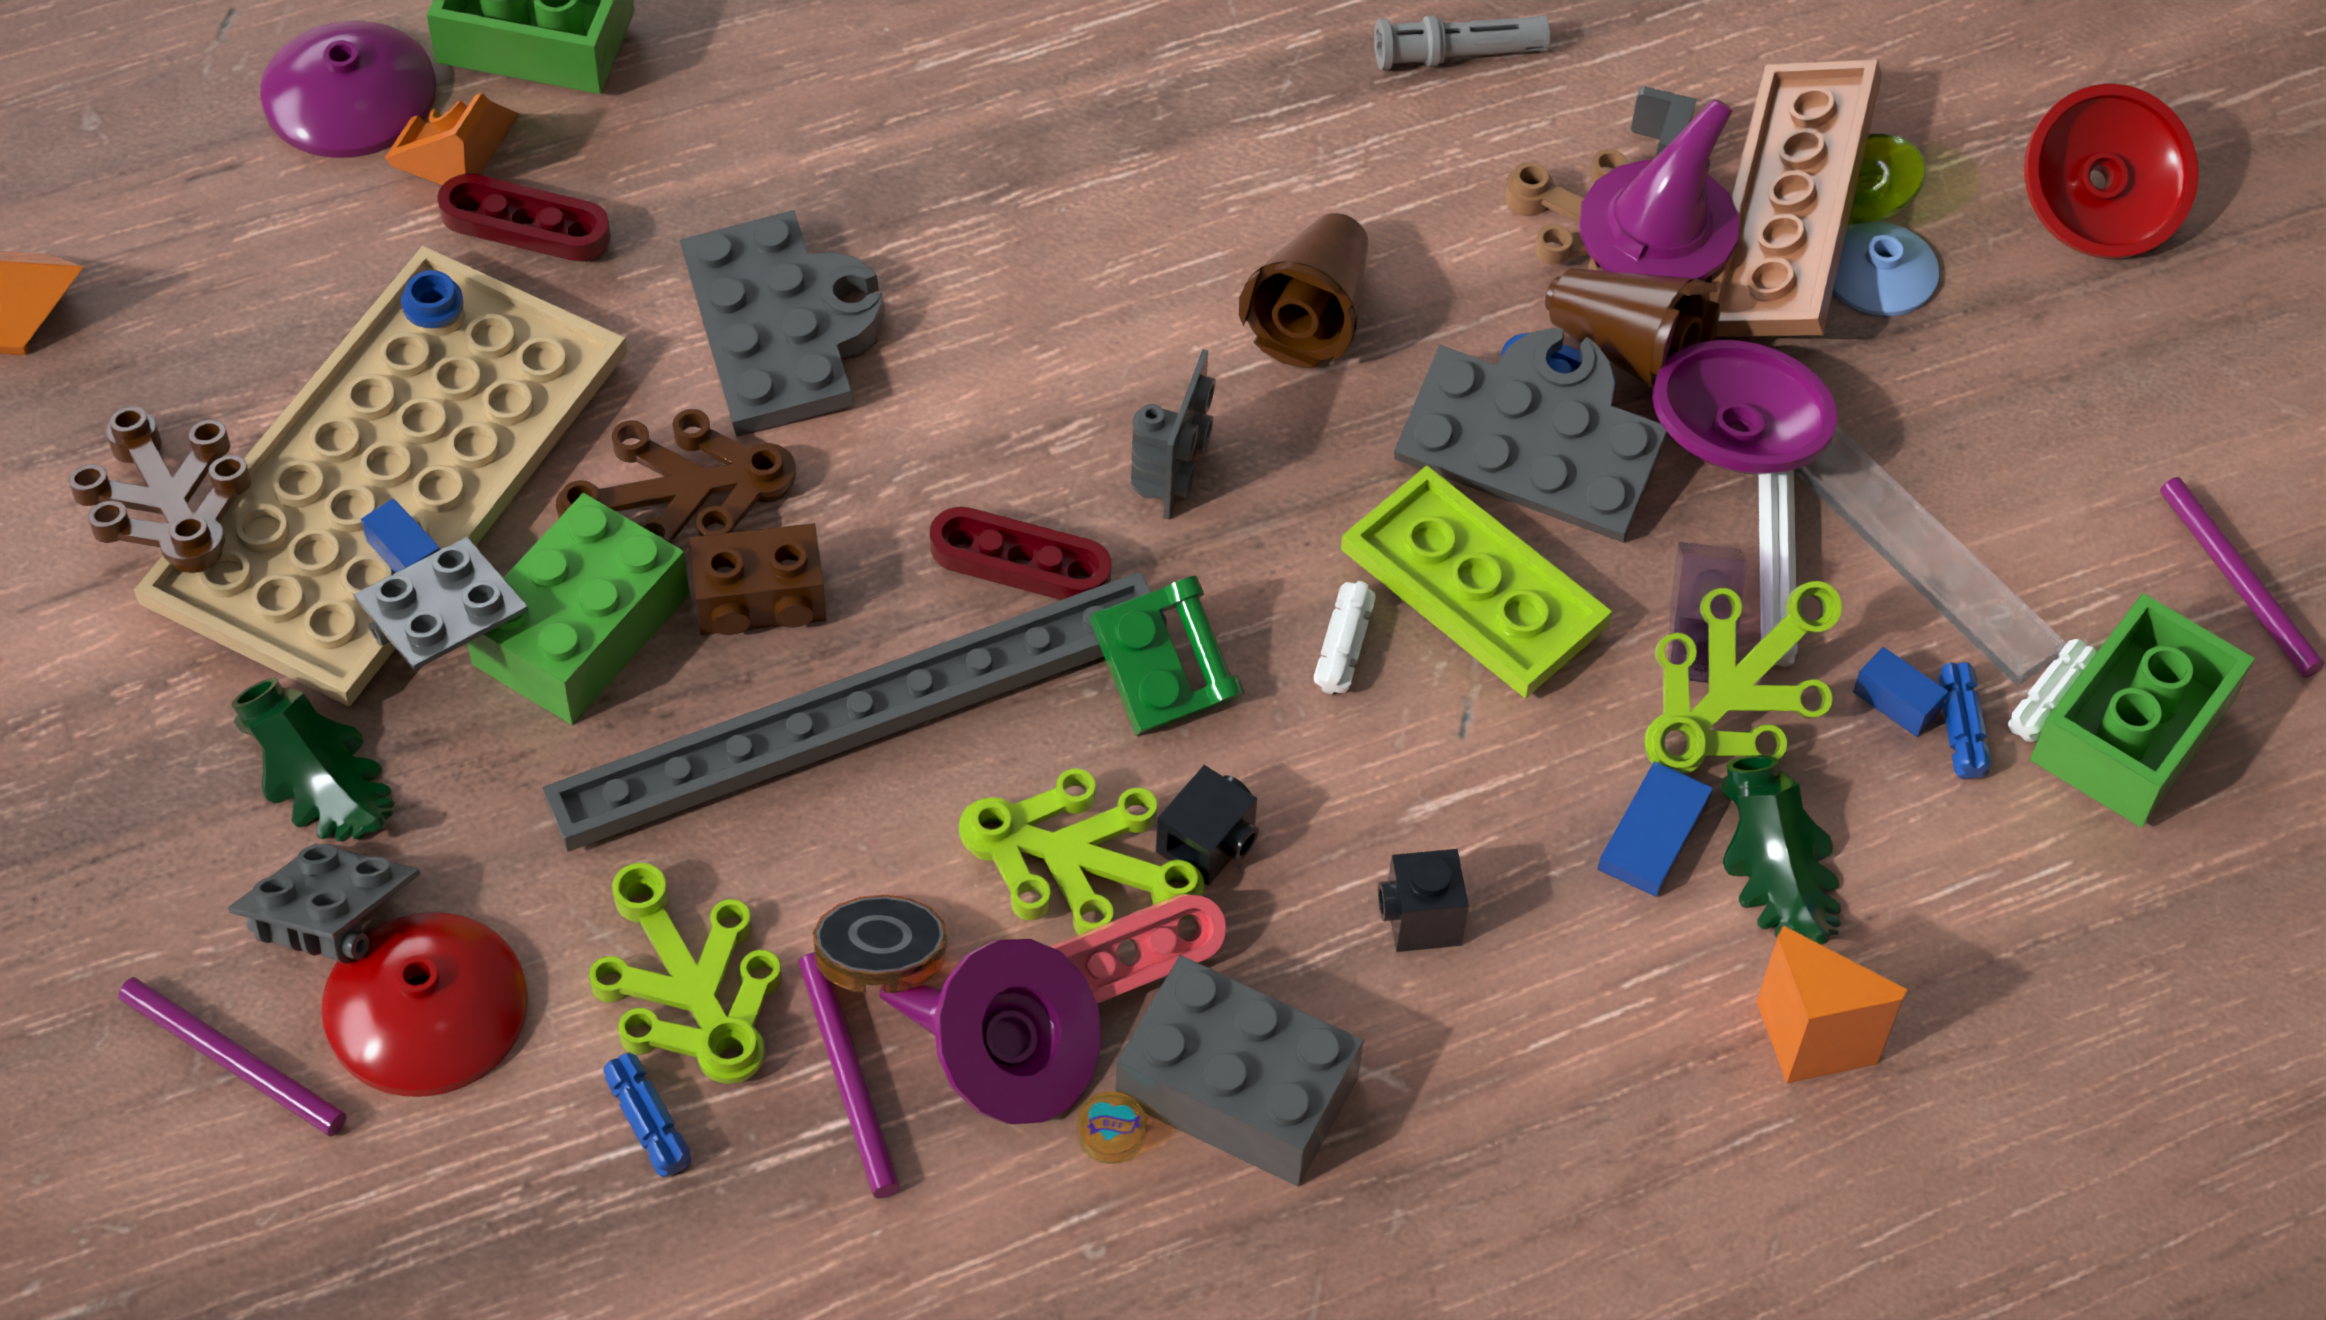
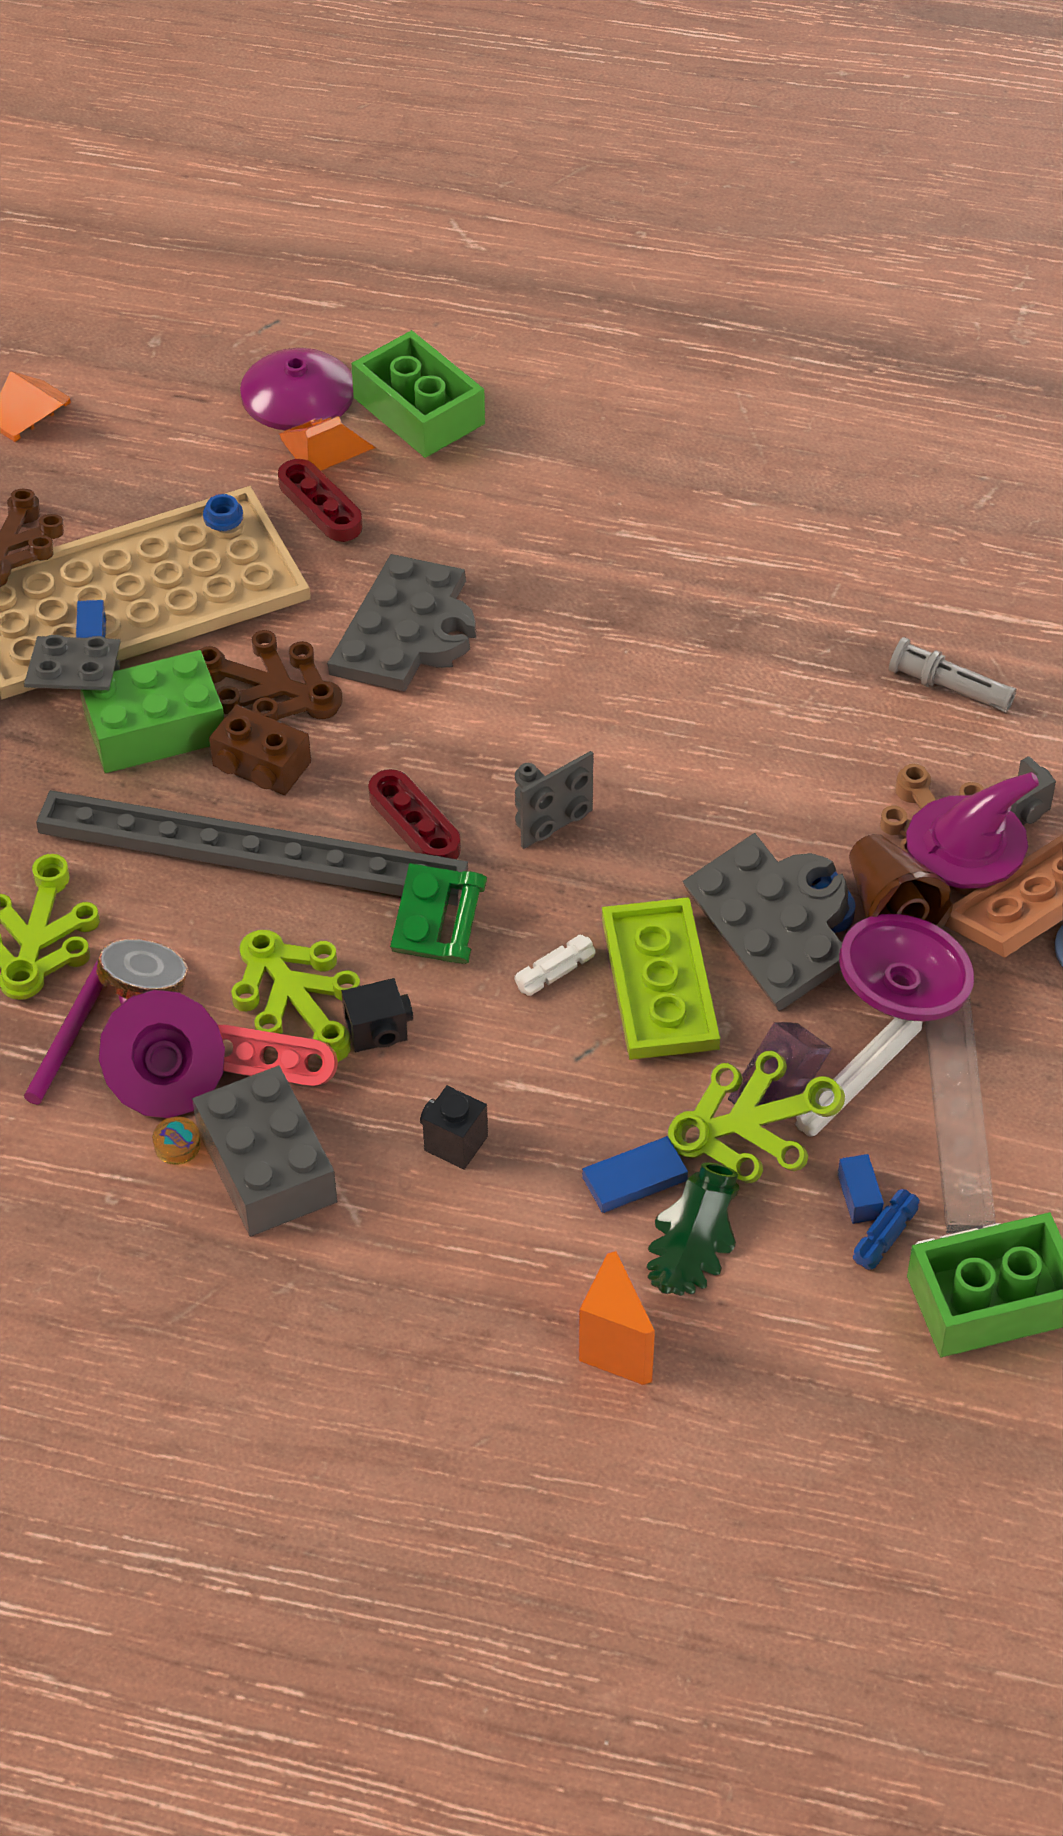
camera: 40 degrees right, 5 degrees down
(1309, 293) = (713, 763): reddish brown cone -> none

